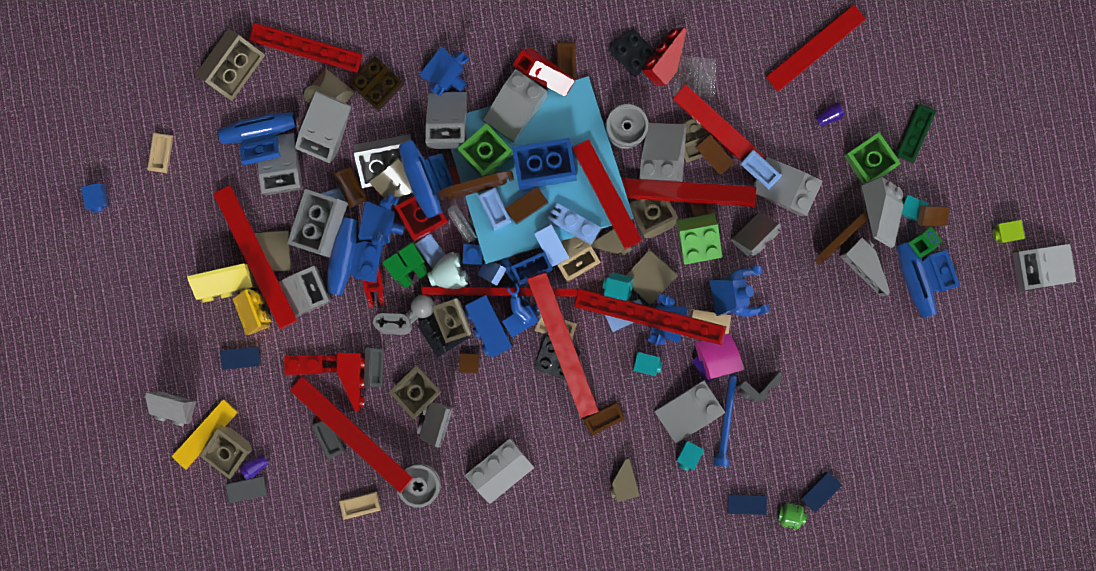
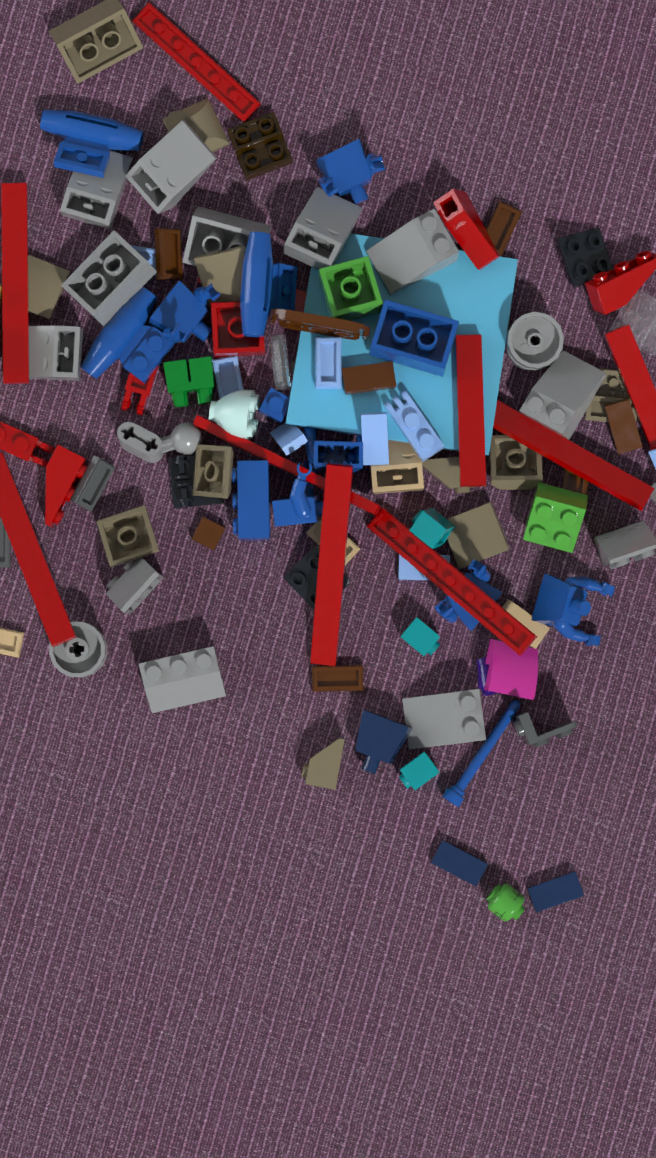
camera: 25 degrees right, 0 degrees up
(653, 447) = (379, 739): none -> dark blue torso

